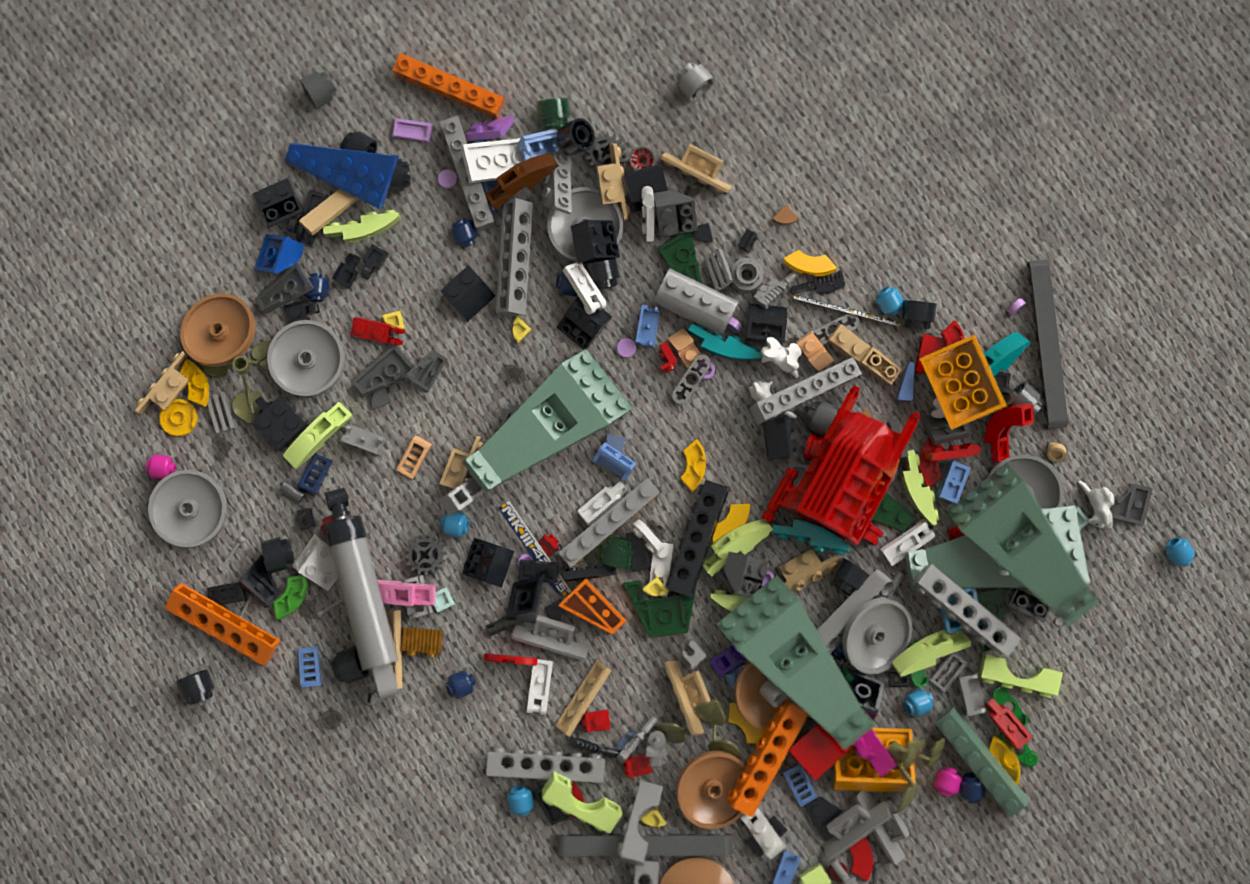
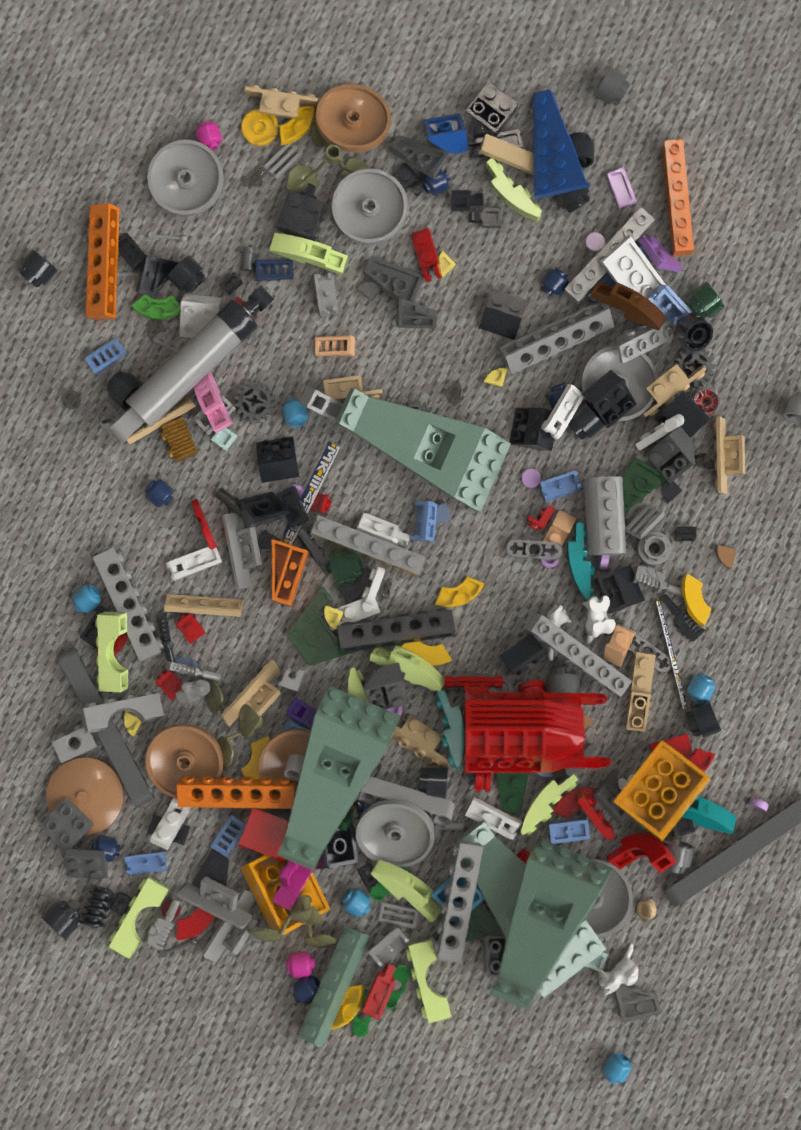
camera: 60 degrees right, 0 degrees up
(905, 391) = (627, 745): medium blue slope -> none

